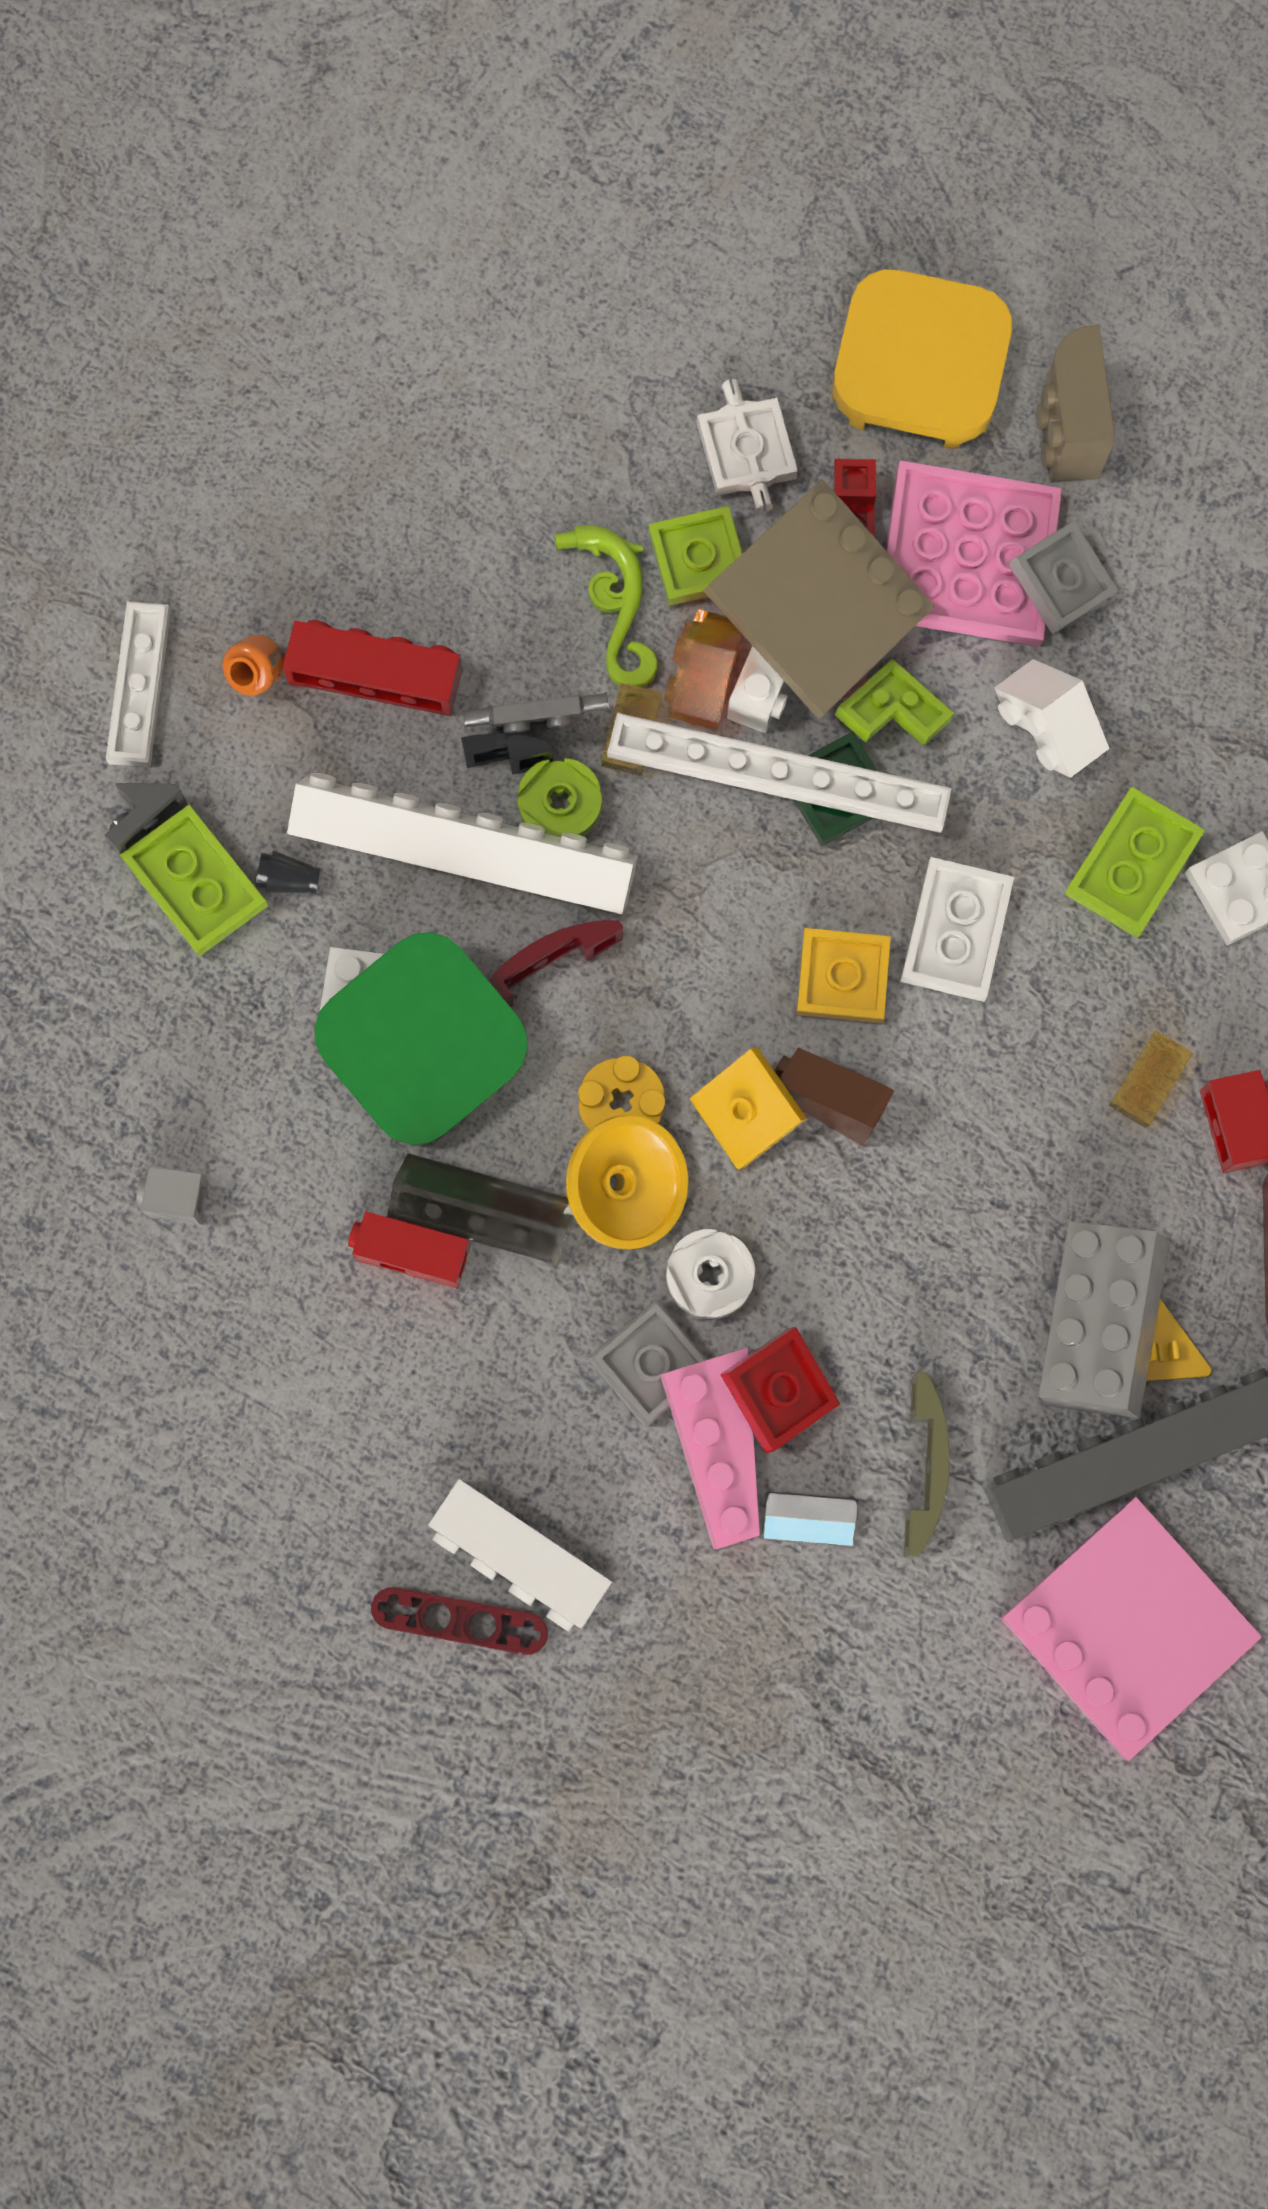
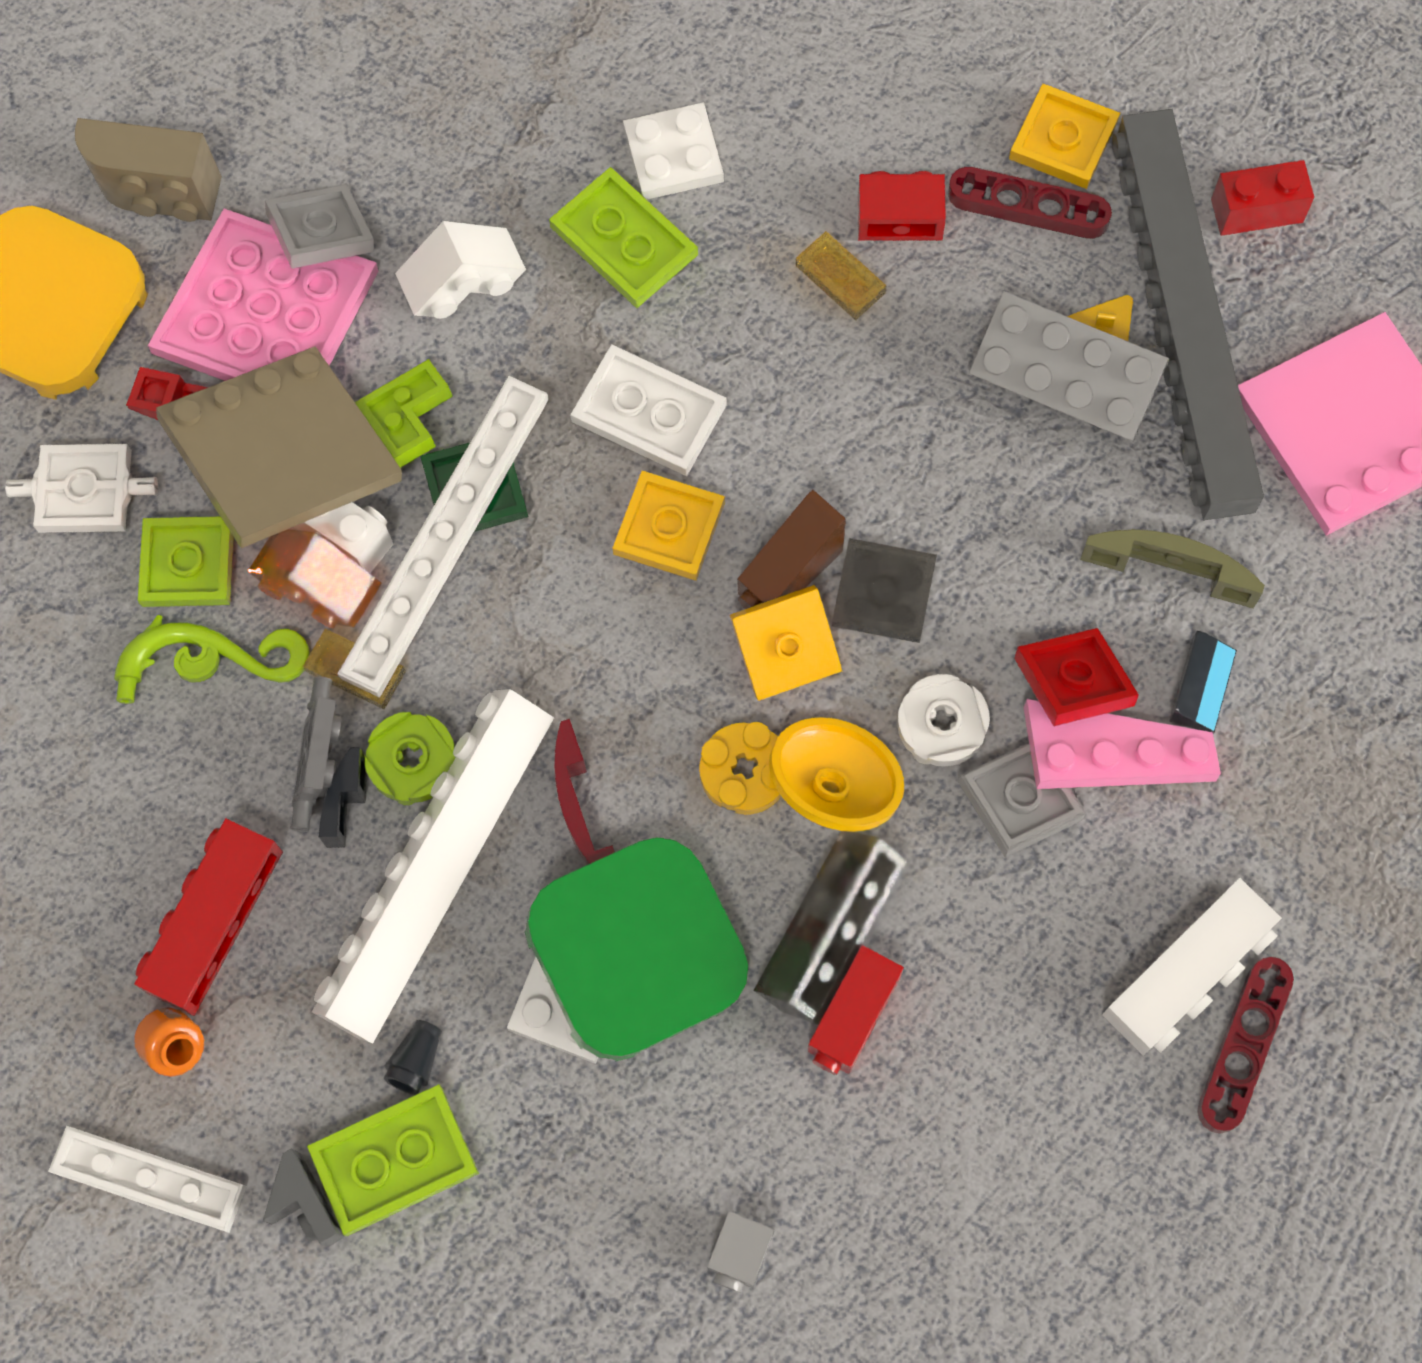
camera: 70 degrees left, 5 degrees down
(828, 1191) = (884, 590): none -> clear smoke plate

